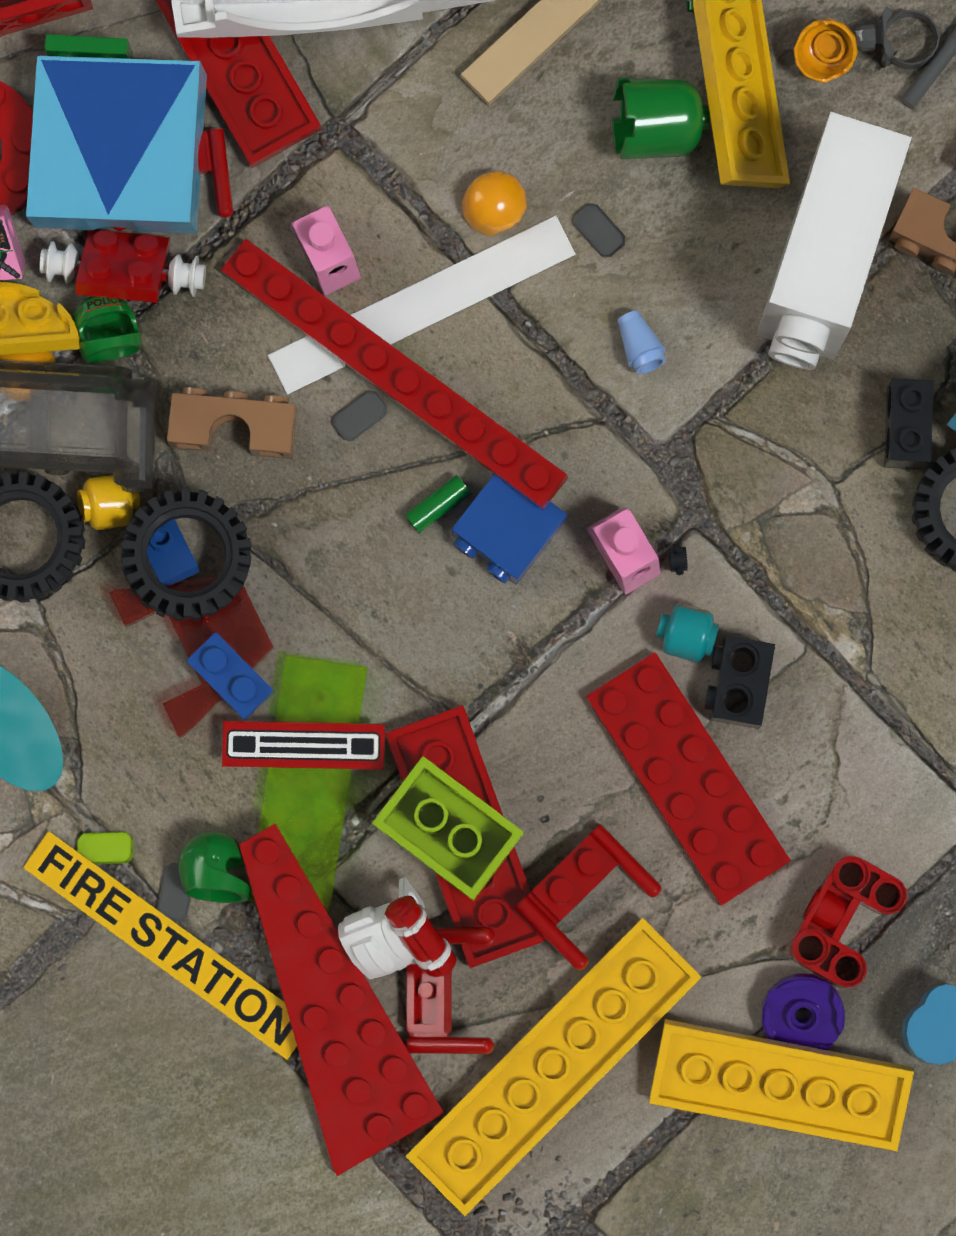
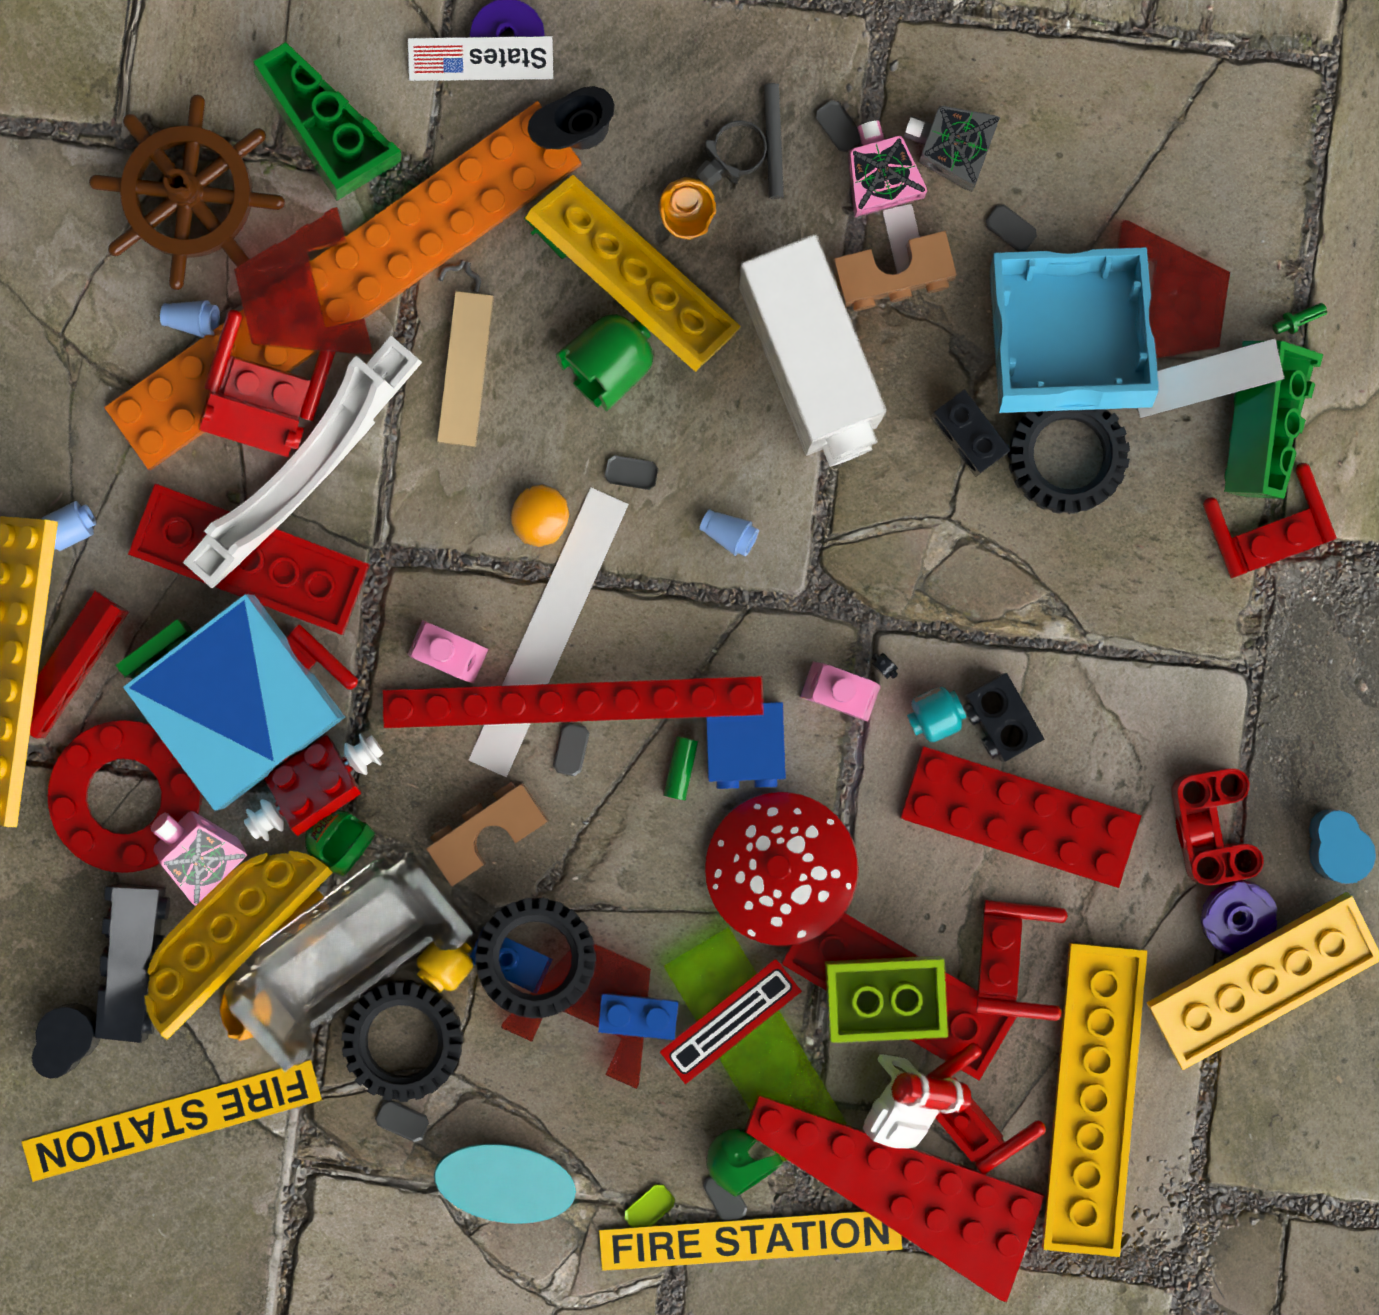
camera: 40 degrees left, 5 degrees up
(451, 654) = (781, 869): none -> red dish

